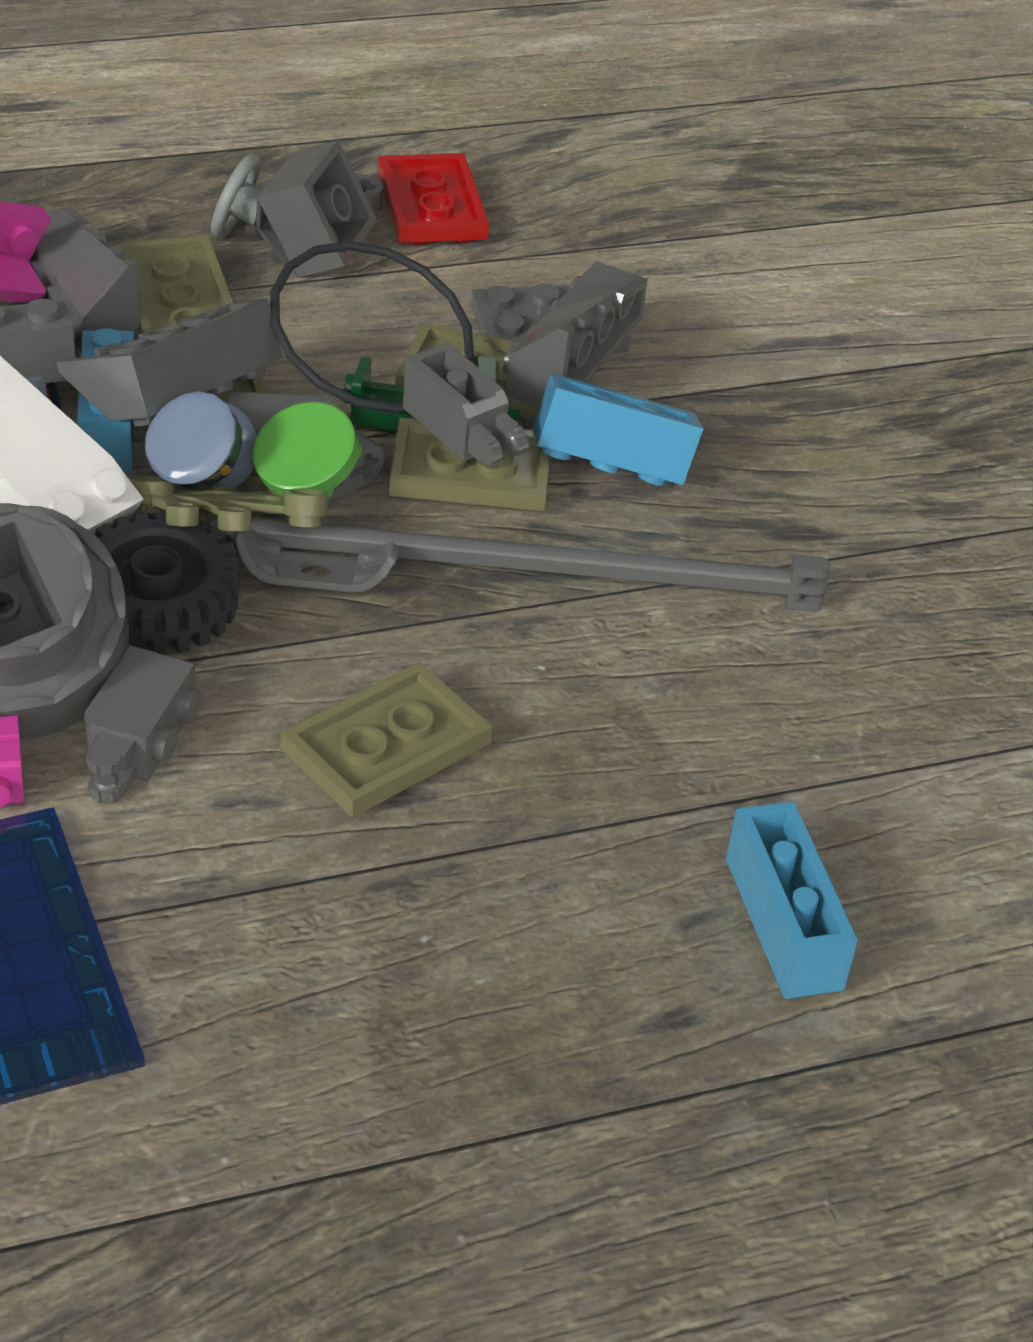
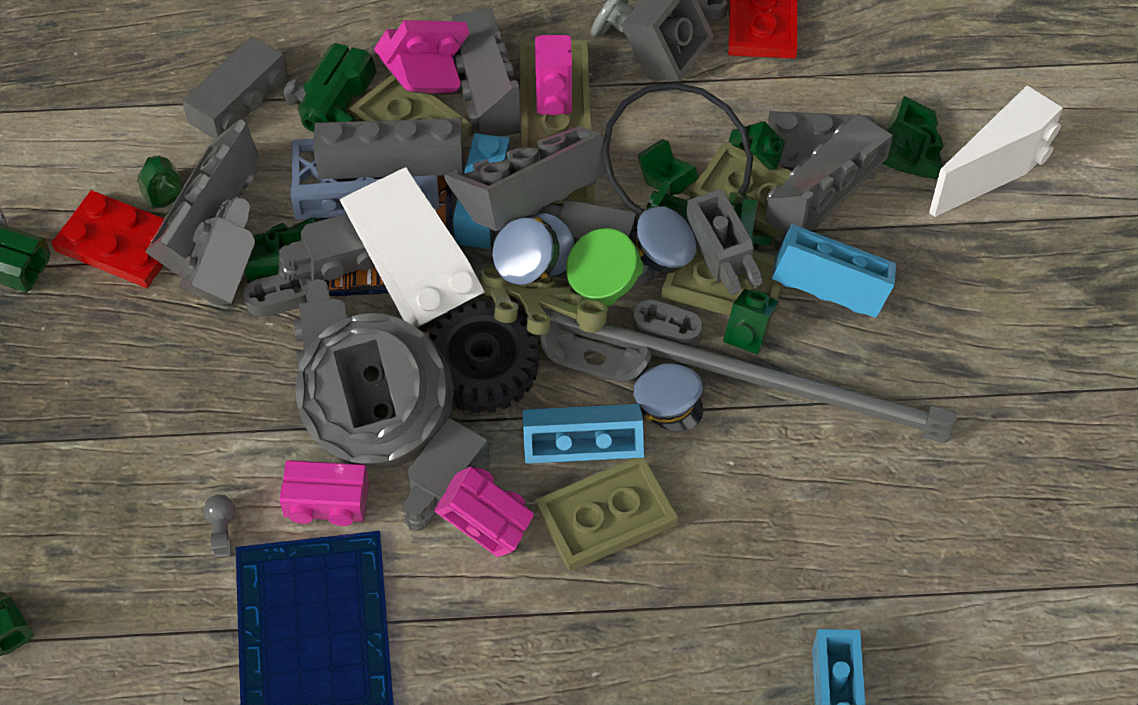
camera: 20 degrees right, 15 degrees up
(179, 254) = (553, 74): none -> dark pink brick
(213, 748) = (485, 511): none -> dark pink brick
(329, 645) = (583, 433): none -> dark azure brick
(342, 351) = (660, 166): none -> dark green bracket
(383, 416) = (664, 240): none -> sand blue piece
(406, 515) = (668, 322): none -> dark grey beam
(437, 598) = (670, 396): none -> sand blue piece
(483, 309) = (764, 143): none -> dark green bracket
(520, 501) = (750, 320): none -> dark green bracket
(672, 307) = (915, 140): none -> dark green slope
(782, 294) = (999, 151): none -> white slope

